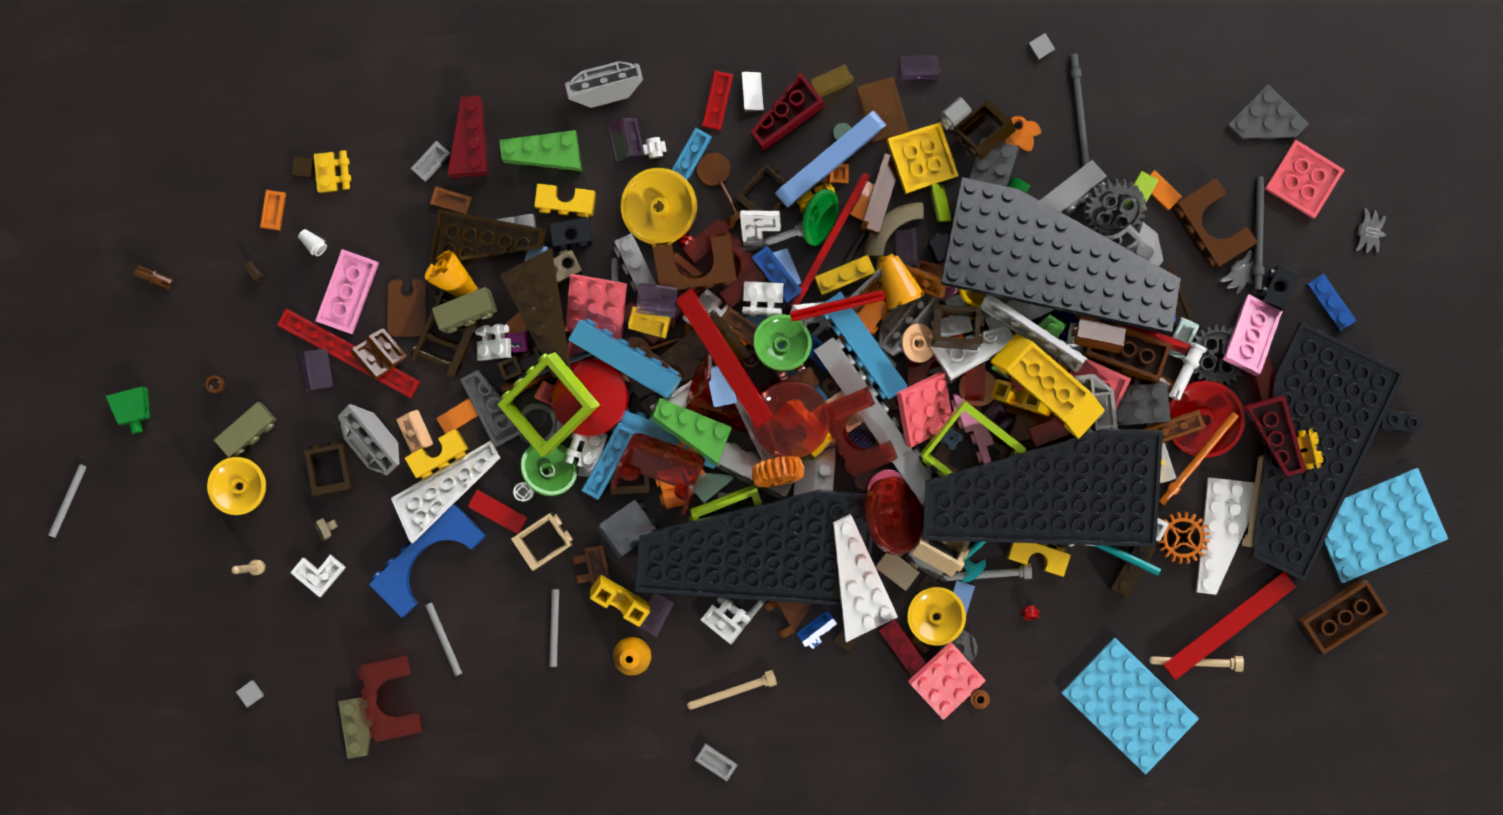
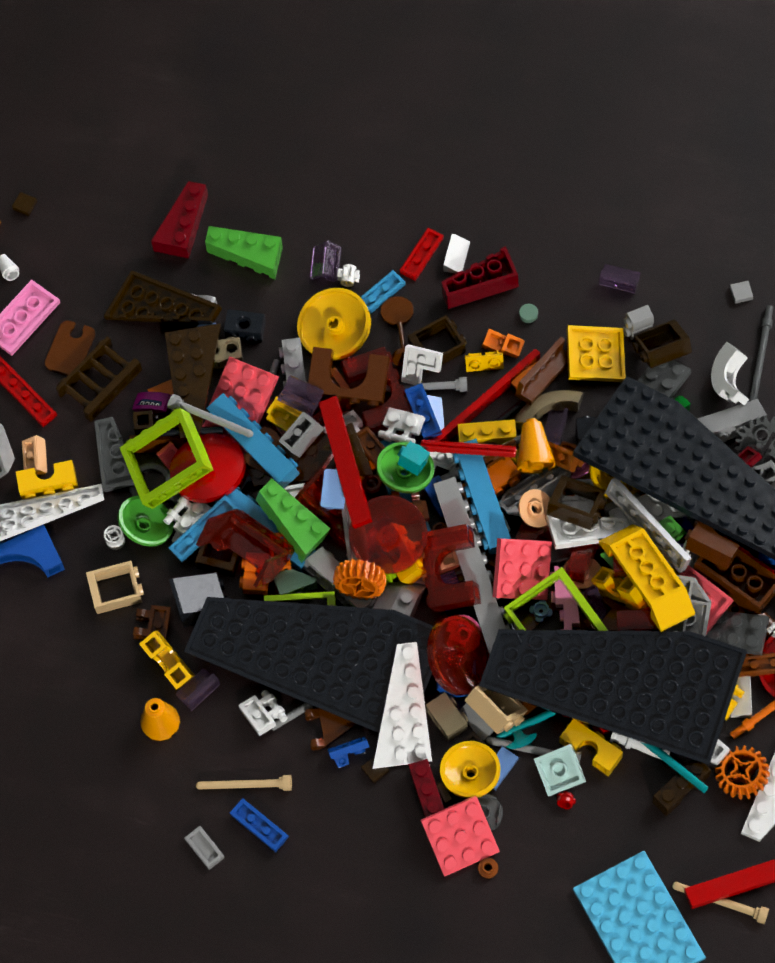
camera: 25 degrees right, 20 degrees down
(326, 171) = (43, 215): yellow plate -> none
(378, 354) = (28, 377): reddish brown slope -> none
(430, 161) = (140, 230): light grey plate -> none
(450, 200) = (146, 267): dark orange tile -> none
(450, 275) = (121, 329): light orange cone -> none
(457, 416) = (80, 453): orange tile -> none
(464, 310) = (121, 357): olive brick -> none
(493, 349) = (136, 401): white plate -> none
(497, 512) = (82, 548): red tile -> none
(539, 346) = (176, 402): none -> light grey piece
(548, 201) = (234, 293): yellow arch -> none
(554, 627) = (95, 671): light grey bar -> none
(604, 84) = (322, 210): light grey wedge -> none
(673, 338) = (301, 434): none -> light grey brick
(759, 726) = (259, 825): none -> blue plate
(788, 333) = (413, 457): none -> teal brick
(819, 217) = (480, 372): green dish -> none
(830, 159) = (507, 327): medium blue beam -> none
(832, 81) = (534, 266): clear yellow panel -> none
(885, 101) = (572, 302): clear orange tile -> none
(940, 203) = (601, 396): lime slope -> none
(1017, 589) = (560, 770): none -> light aqua plate
(1024, 136) = (699, 364): orange plate -> none
(1051, 142) = (724, 373): none -> white arch
(1104, 227) = (750, 456): none -> dark red tile

